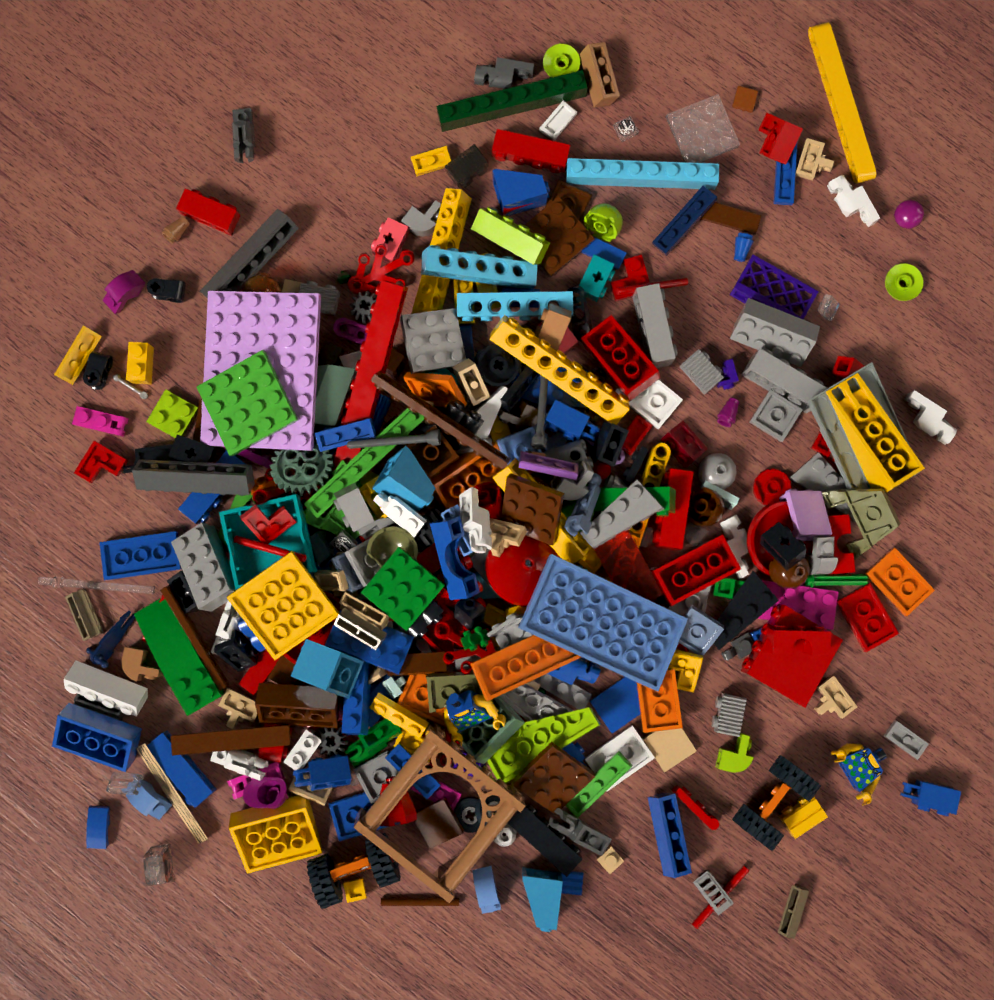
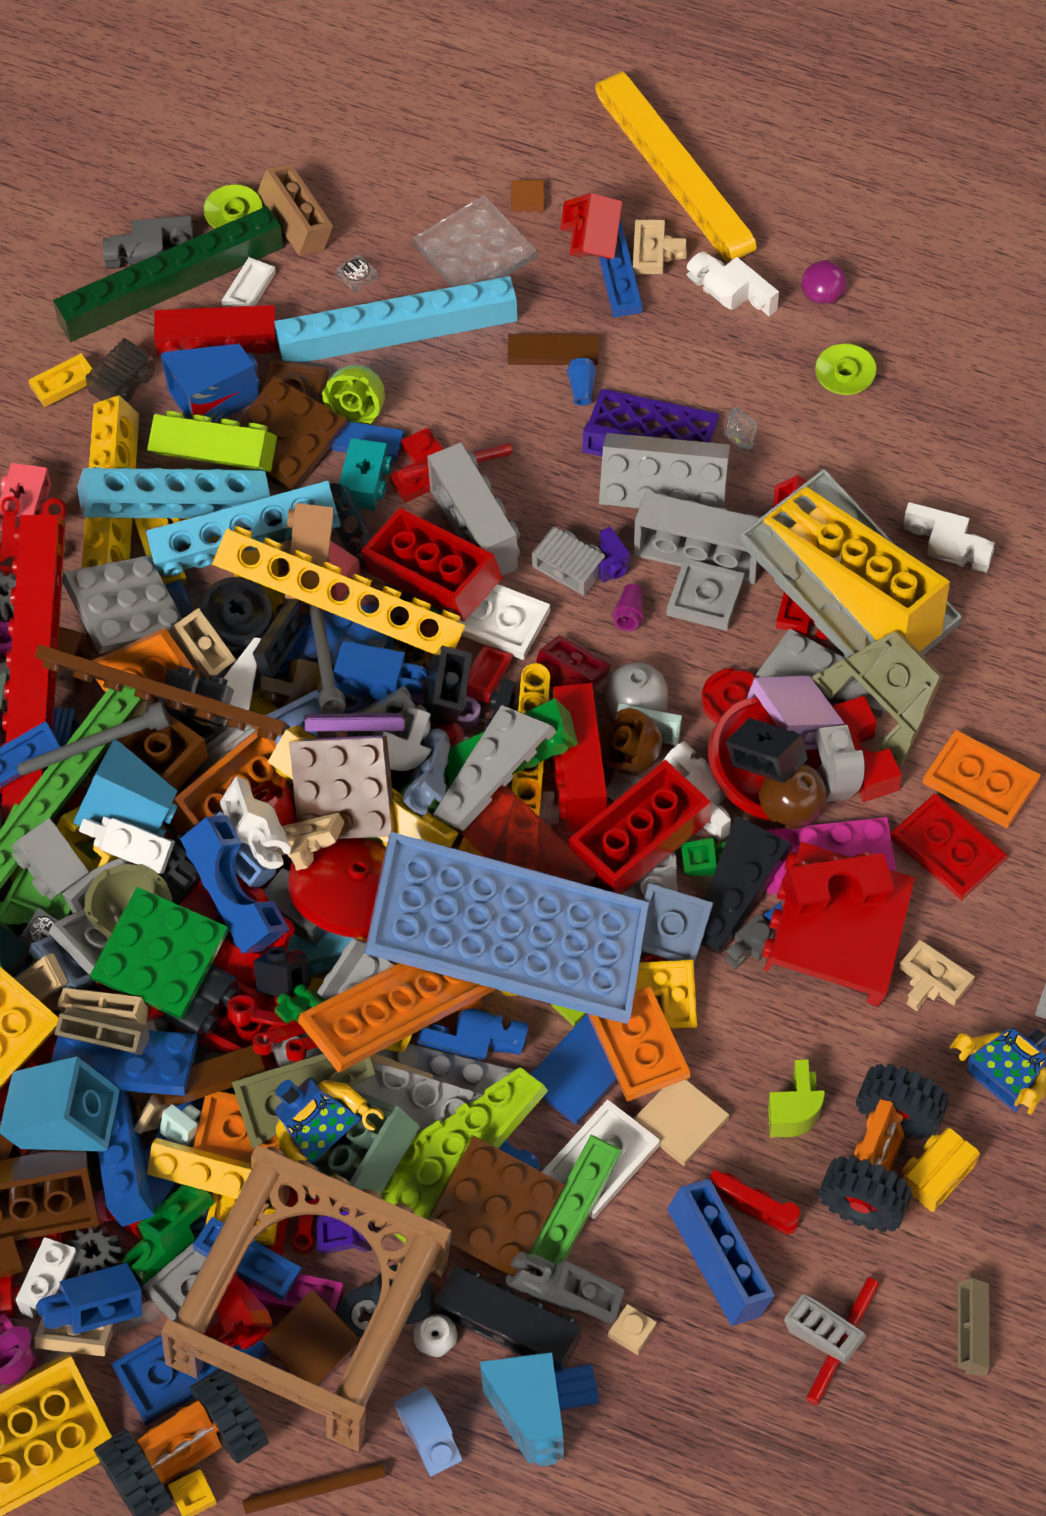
camera: 15 degrees left, 25 degrees down
(422, 224) = (66, 462): light grey brick -> none
(684, 220) = (480, 366): dark blue plate -> none
(729, 714) = (766, 1043): light grey brick -> none
(836, 579) = (877, 802): green axle -> none

